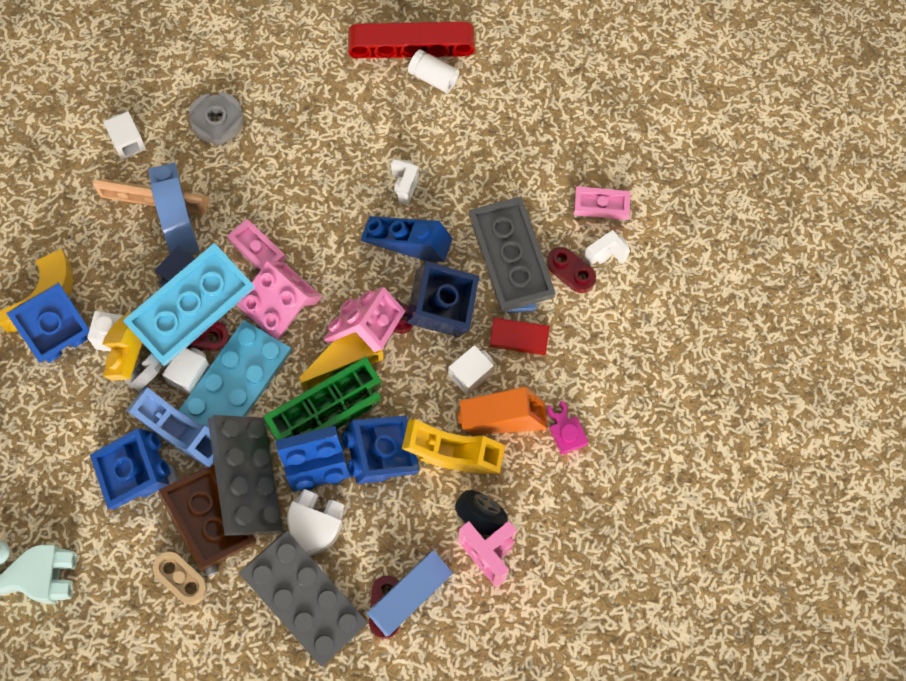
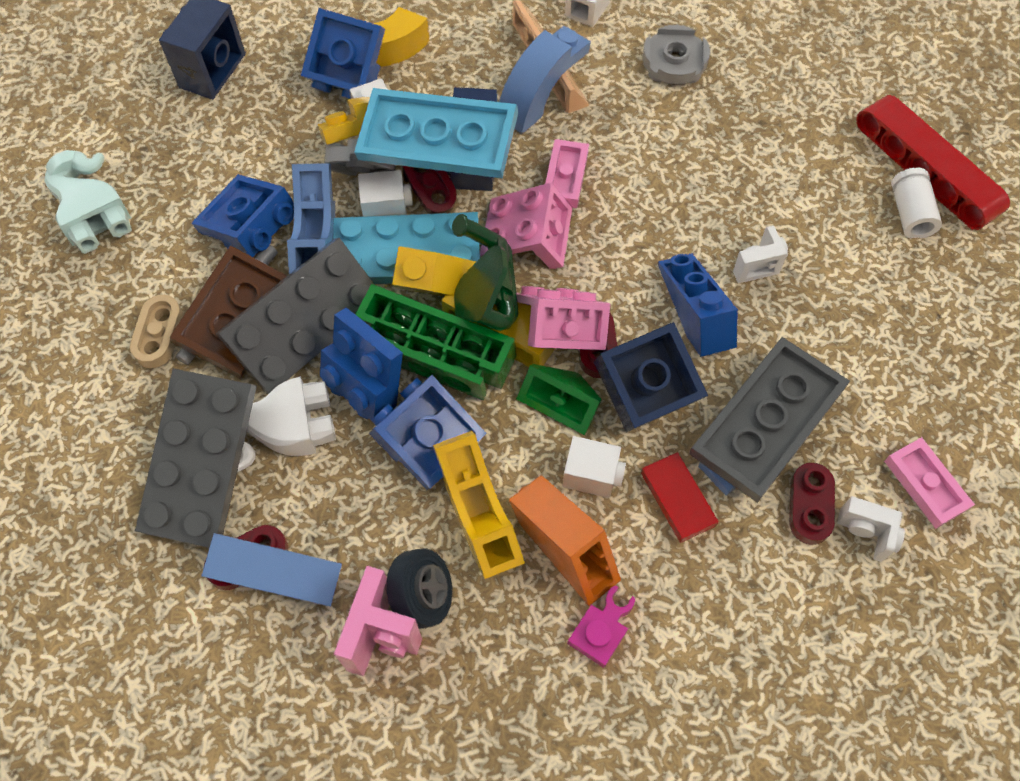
camera: 60 degrees right, 5 degrees down
(284, 368) = (428, 271): none -> yellow slope
(319, 349) = (488, 280): none -> dark green piece
(412, 356) = (560, 395): none -> green slope

